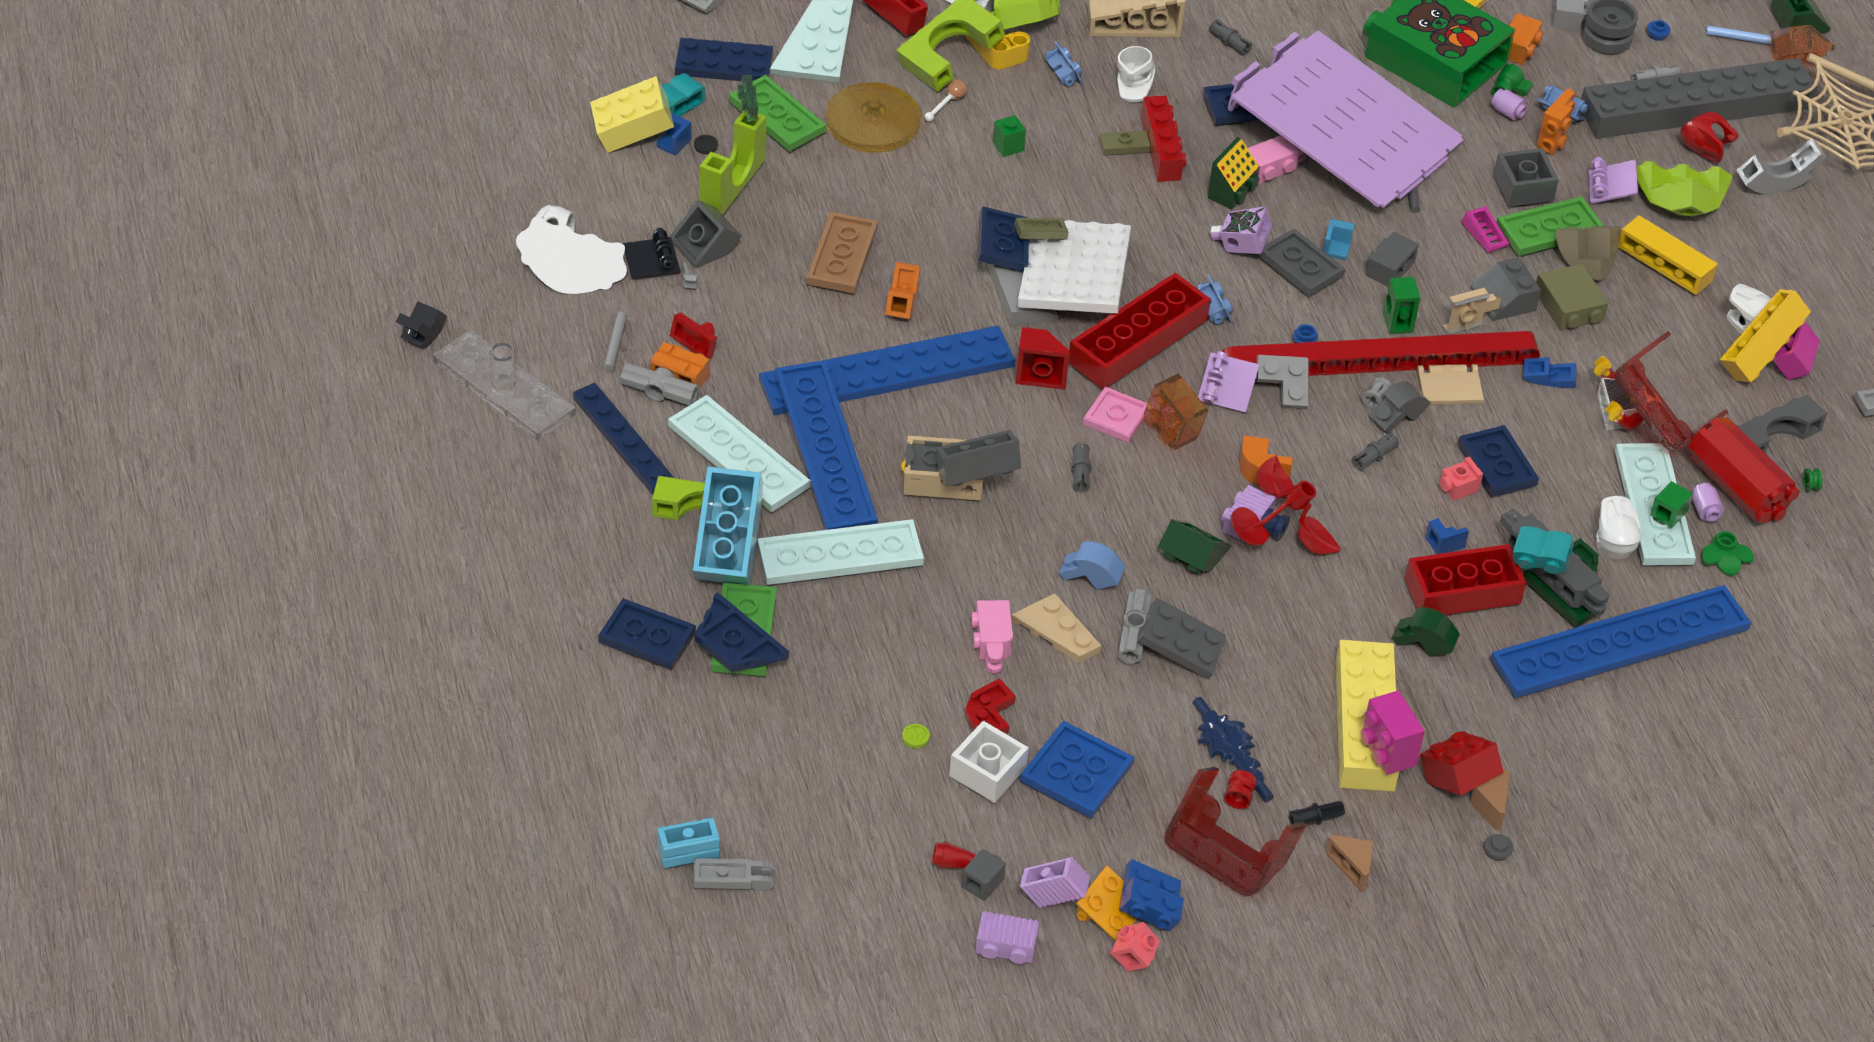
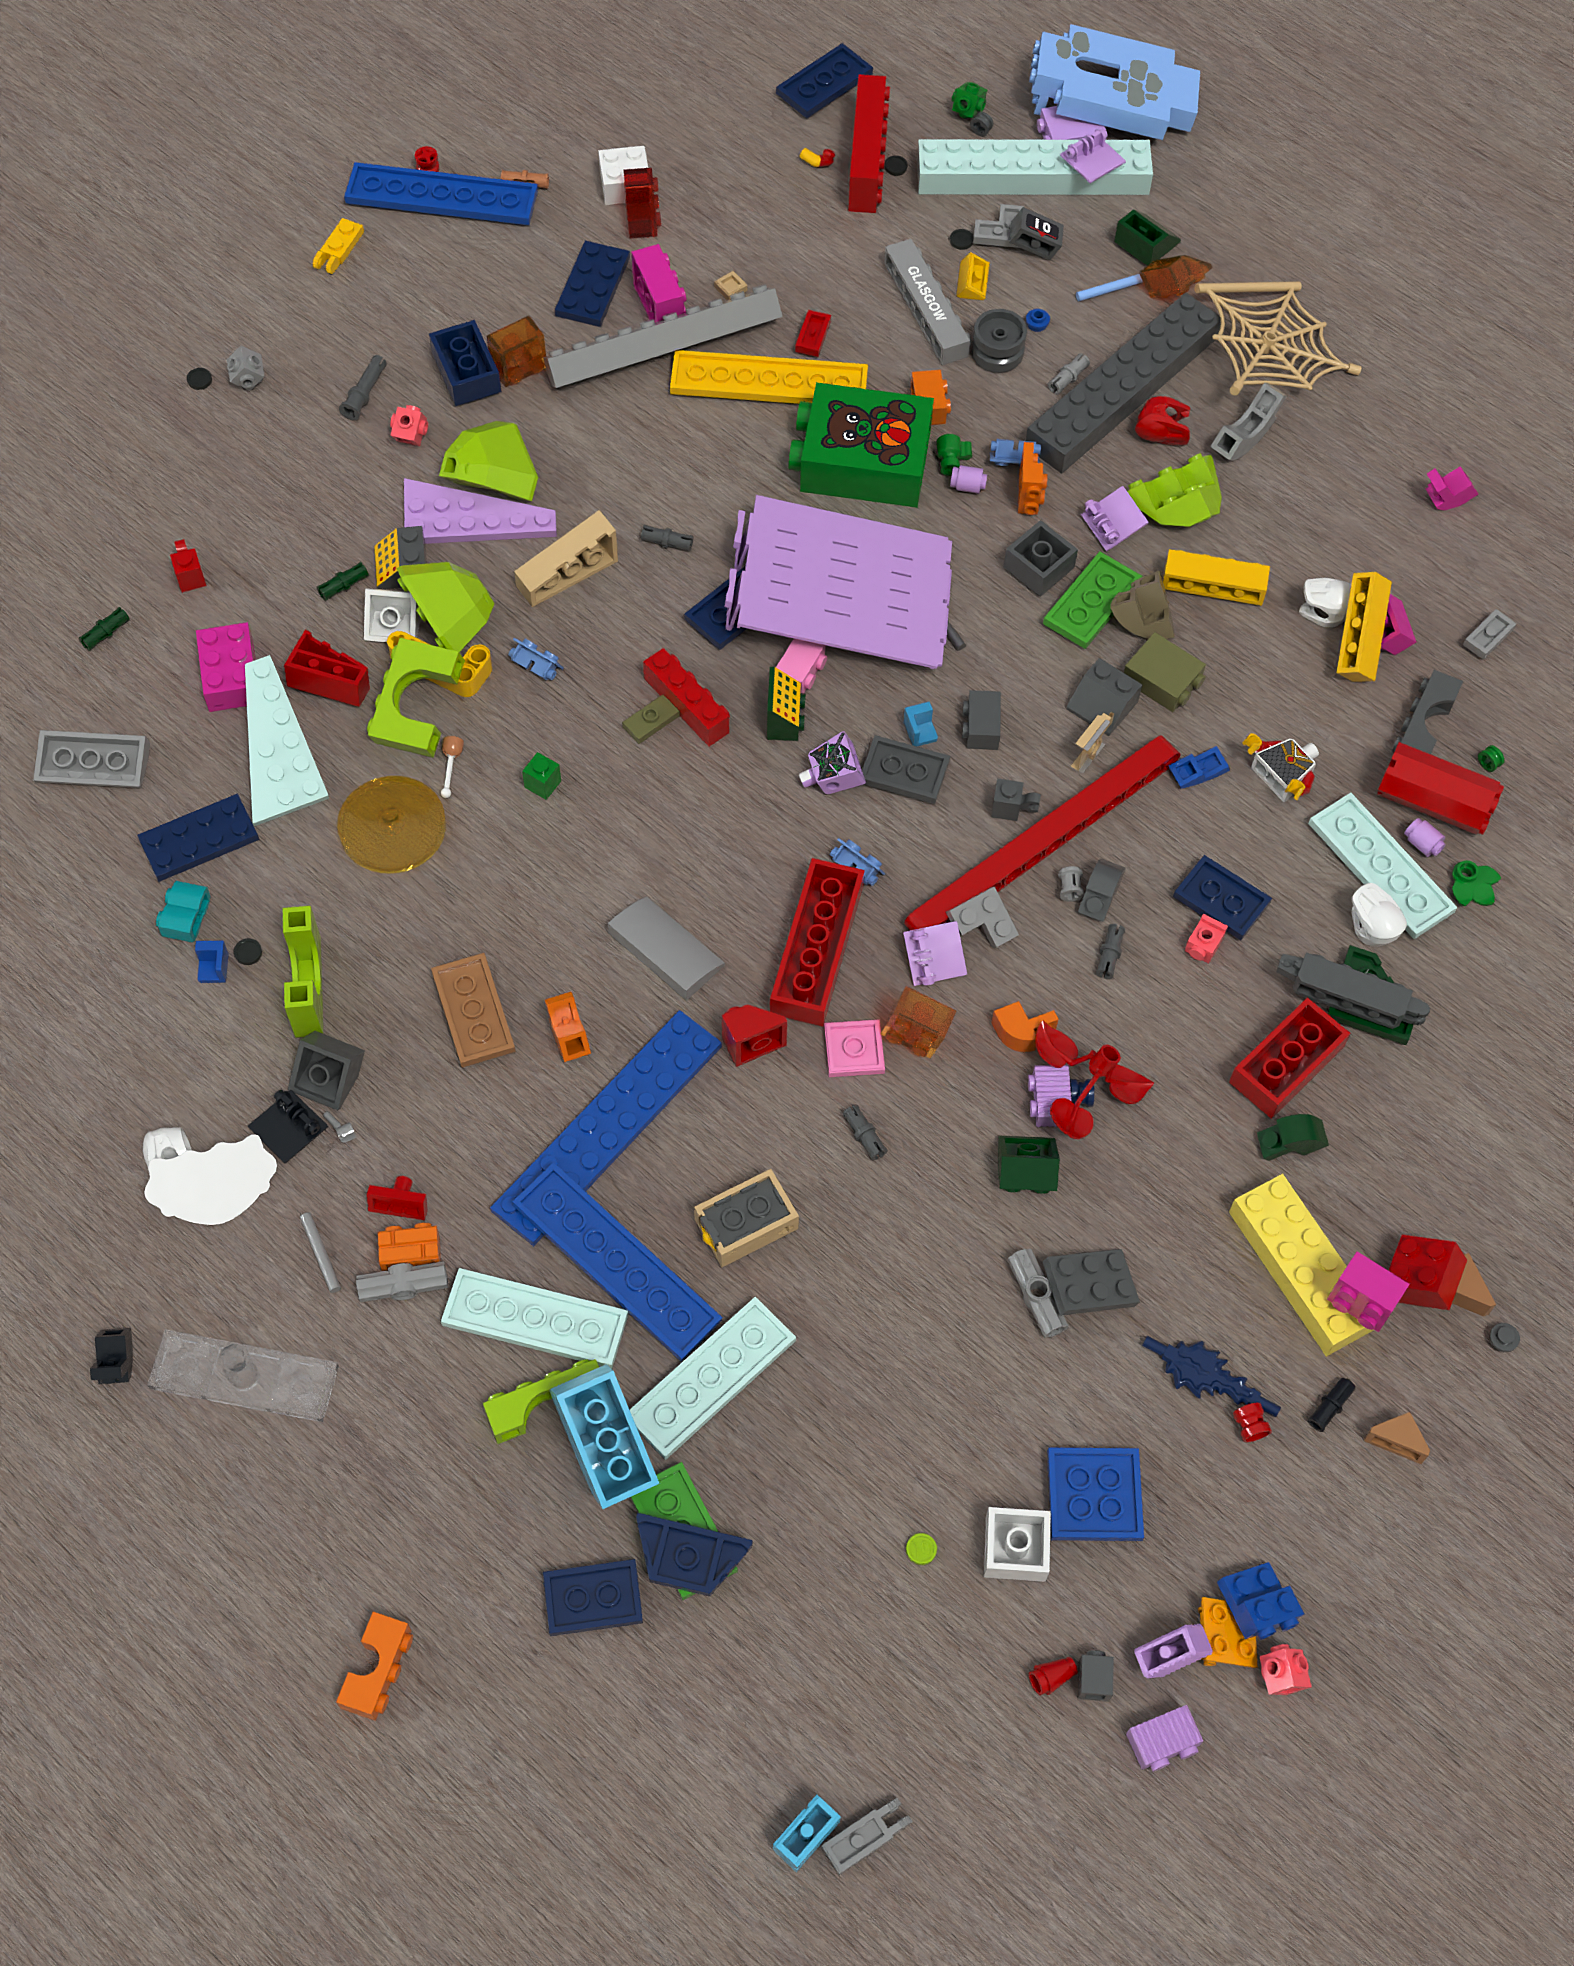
camera: 30 degrees left, 15 degrees up
(445, 602) = (368, 1693): none -> orange arch
(621, 435) = (407, 1368): dark blue plate -> none
(632, 114) = (157, 966): light yellow brick -> none
(748, 97) = (290, 904): clear green plate -> none
(786, 117) = (296, 874): bright green plate -> none
(978, 458) = (788, 1202): dark grey brick -> none
(987, 702) = (963, 1480): red plate -> none
(993, 632) = (917, 1384): bright pink hinge -> none
(1000, 241) = (624, 909): dark blue plate -> none
(1041, 228) = (653, 877): olive plate -> none
(1058, 625) = (965, 1334): tan wing -> none
(1077, 271) = (710, 901): white plate -> none
(1096, 562) = (955, 1245): medium blue brick -> none
(1135, 73) = (612, 634): white helmet -> none
(1216, 851) = (1286, 1504): clear red windscreen -> none
(1305, 333) = (963, 847): blue plate -> none
(1370, 318) = (1009, 800): none -> dark grey brick
(1401, 305) = (1033, 768): green brick -> none
(1445, 539) = (1234, 1014): blue panel -> none
(1450, 384) = (1122, 832): tan piece -> none
(1487, 221) = (1028, 639): dark pink slope -> none
(1543, 549) = (1349, 993): teal brick -> none
(1620, 641) = (1452, 1040): blue plate -> none
(1670, 431) = (1357, 780): clear red windscreen -> none
(1671, 504) = (1406, 863): green brick -> none

